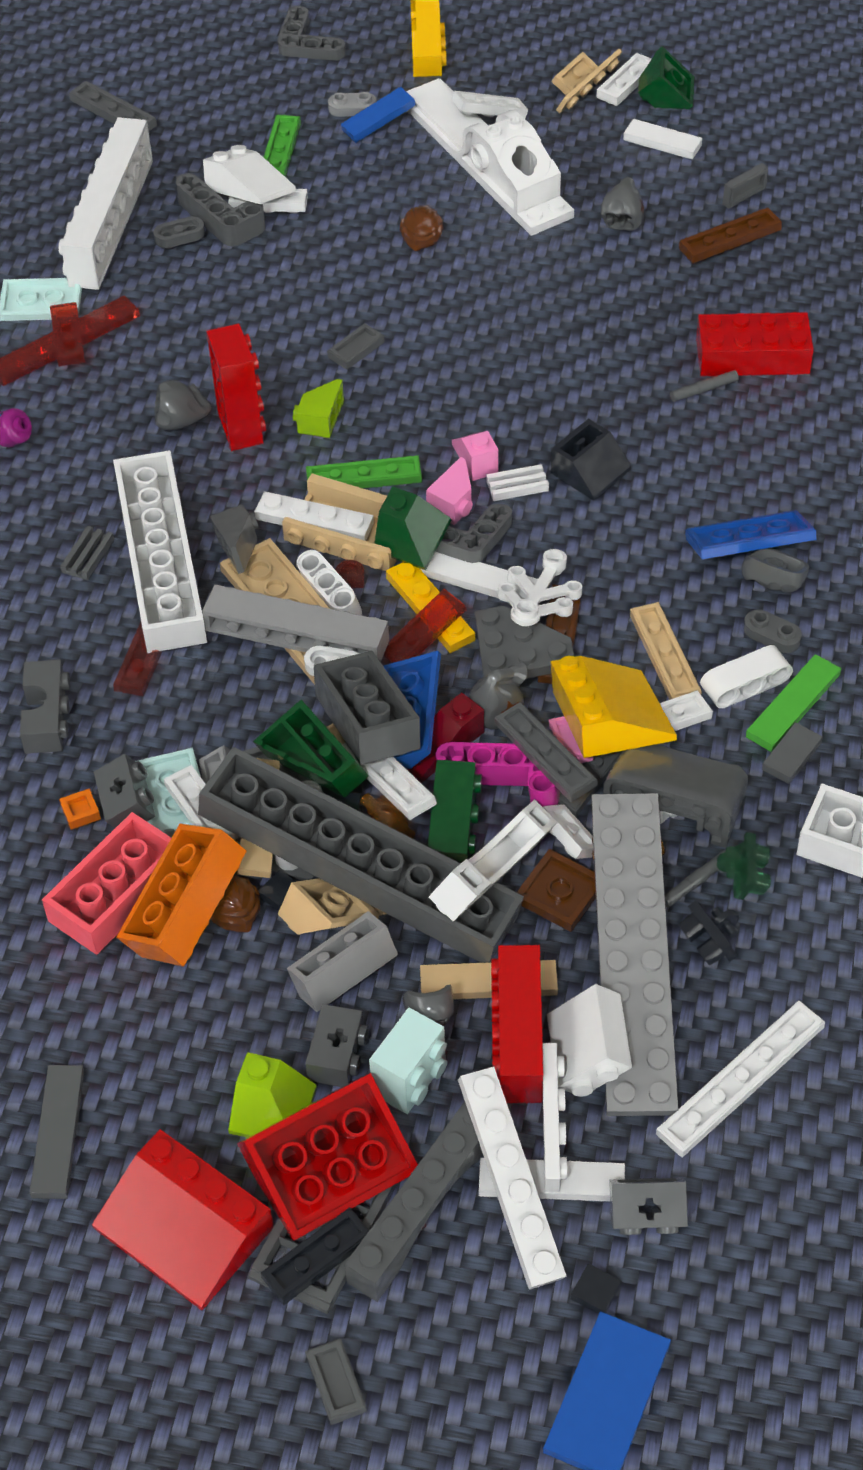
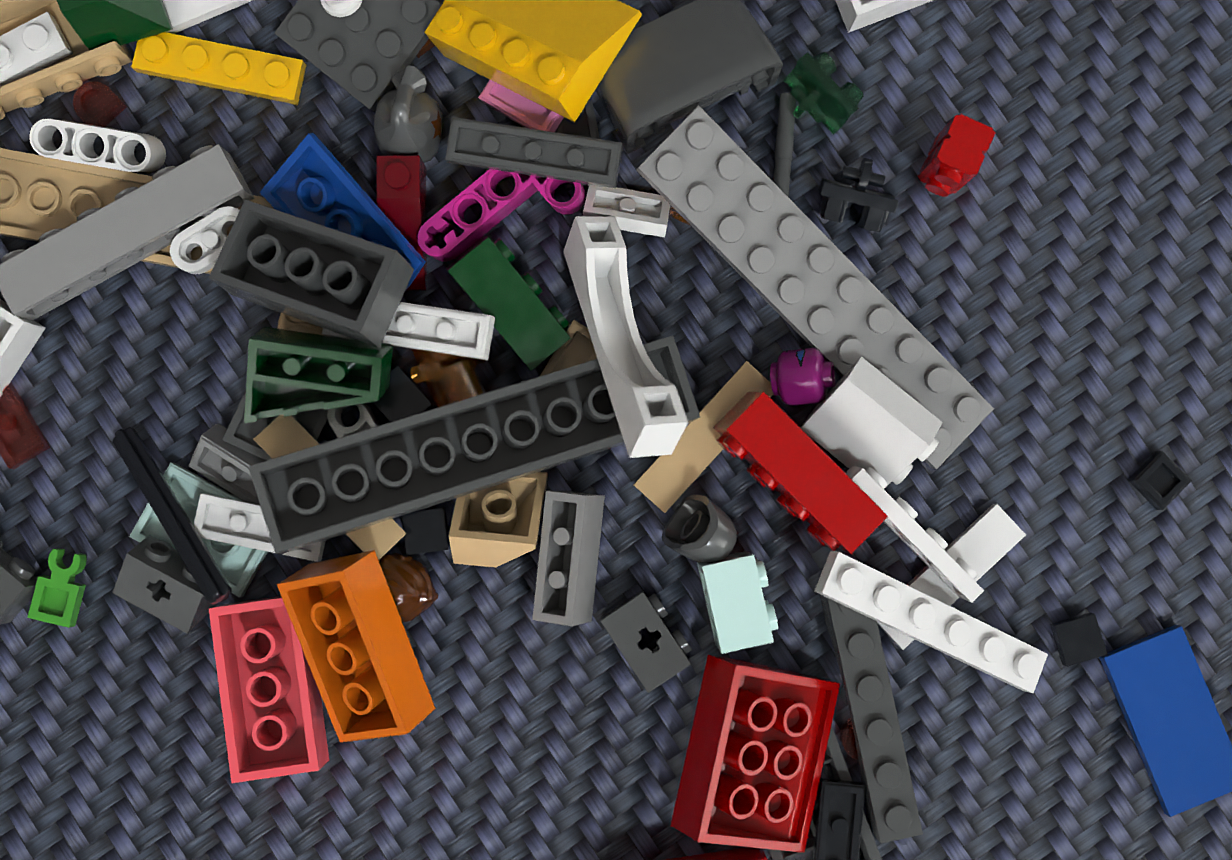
camera: 50 degrees left, 35 degrees up
(66, 757) = (58, 596): none -> bright green plate
(80, 809) = (139, 635): orange plate -> none
(165, 763) = (172, 516): none -> black axle
(266, 1094) = (643, 744): lime slope -> none
(425, 627) = (250, 106): clear red tile -> none
(559, 890) = (678, 282): reddish brown plate -> none
(572, 979) = (801, 376): none -> magenta head
(629, 1194) = (1060, 527): dark grey brick -> none
(740, 1079) = (1011, 319): white tile -> none
(745, 1248) = (1159, 480): none -> black tile
(789, 950) = (955, 155): none -> red brick

